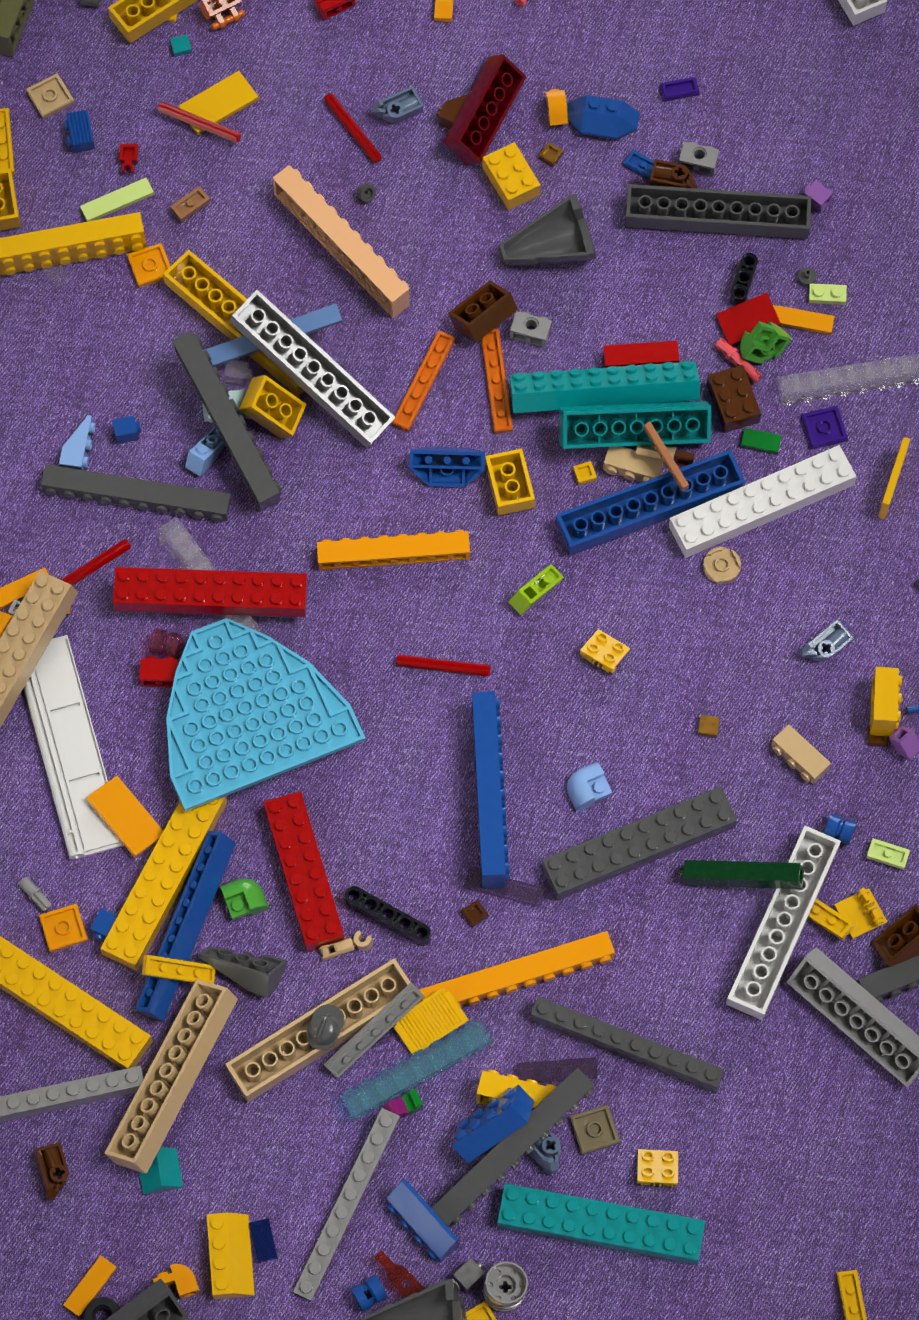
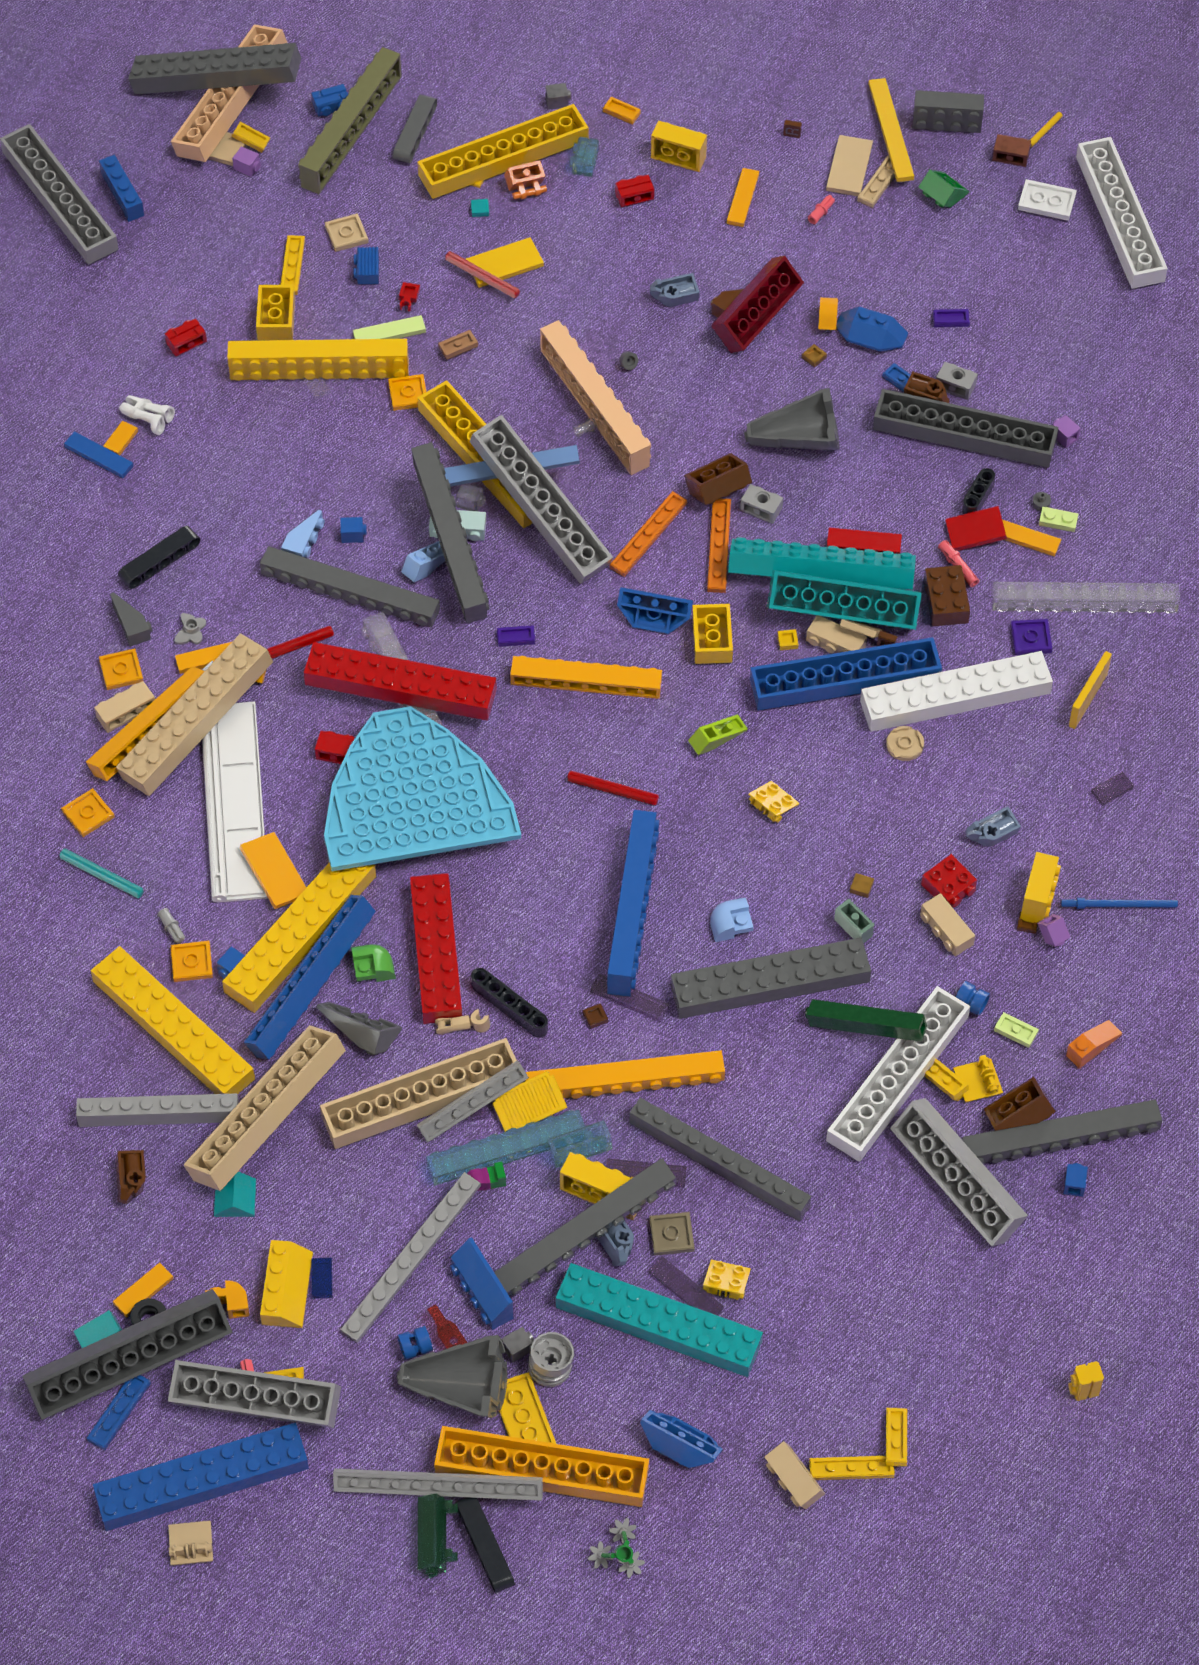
camera: 10 degrees right, 10 degrees down
(165, 643) = (346, 722): clear pink wheel -> none
(177, 969) = (291, 1011): yellow tile -> none
(272, 406) = (496, 528): yellow brick -> none
(313, 516) = (516, 636): none -> dark purple tile
(325, 1027) = (424, 1088): dark grey piece -> none
(340, 272) = (589, 425): none -> clear pin
(353, 128) = (628, 303): red axle -> none
(488, 1054) = (584, 1141): none -> clear light blue brick
(492, 1123) = (569, 1201): blue brick -> none
(511, 176) = (771, 367): yellow brick -> none
(619, 1184) = (684, 1287): none -> clear purple tile
(666, 457) = (867, 630): nougat tile -> none
(709, 768) = (854, 921): none -> sand green brick
(761, 441) = (966, 639): green tile -> none
(764, 342) = (986, 549): bright green brick -> none
(794, 707) = (950, 880): none -> red brick

